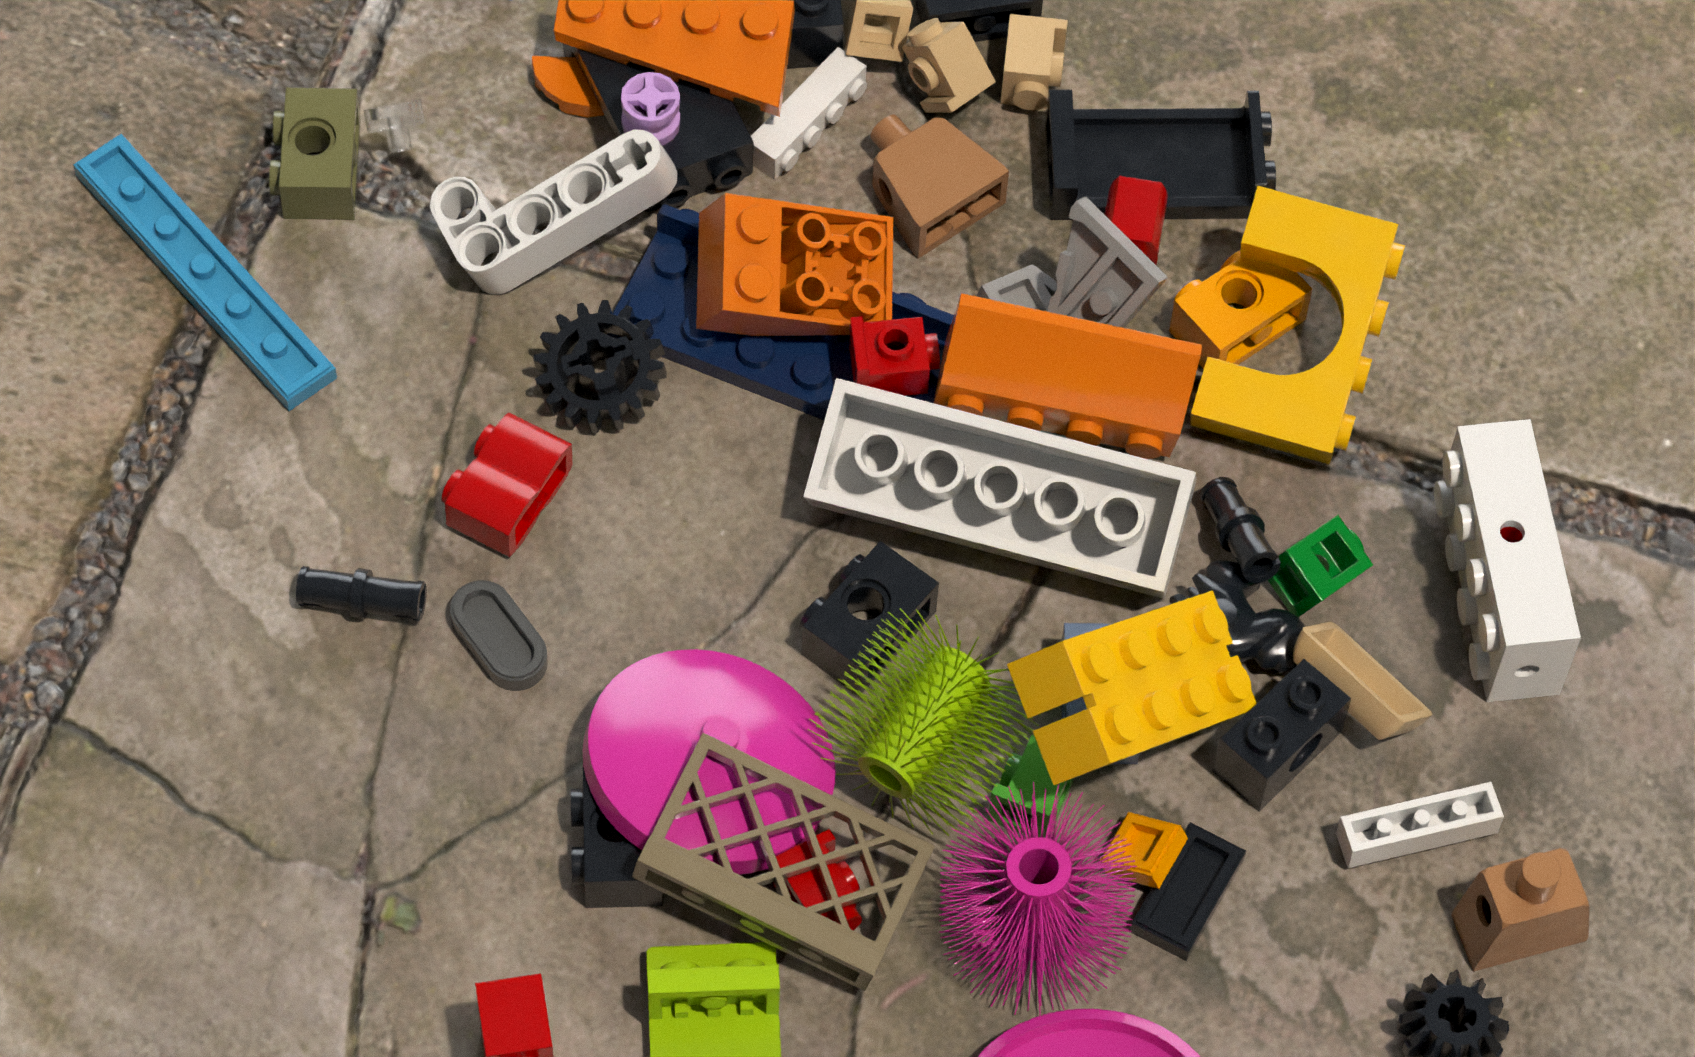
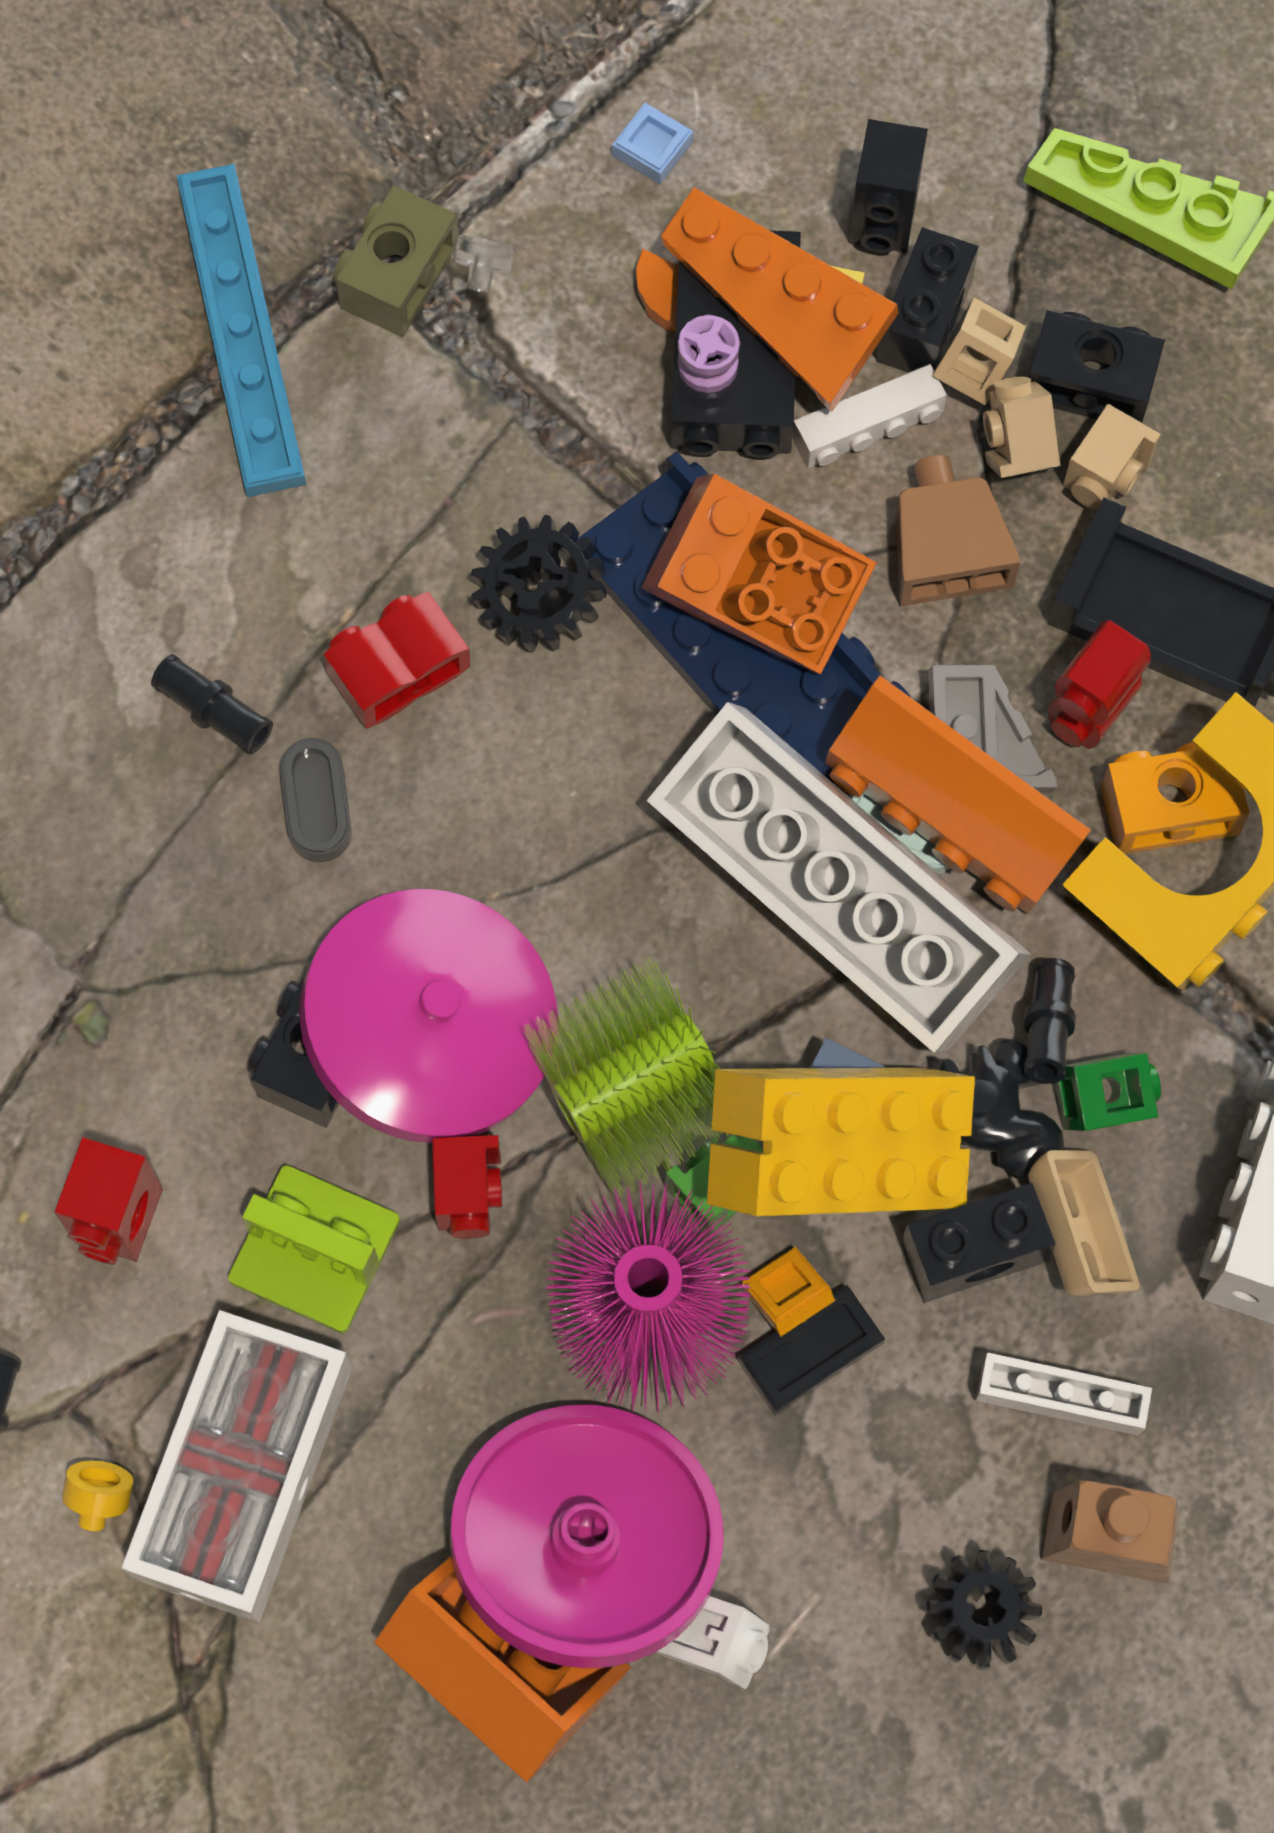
camera: 30 degrees right, 10 degrees up
(554, 200) = (653, 412): white beam -> none
(758, 910) = (389, 1183): dark tan fence -> none
(872, 583) = (672, 906): black brick -> none
(893, 354) = (789, 712): red brick -> none
(1102, 271) = (1038, 713): light grey wing -> none

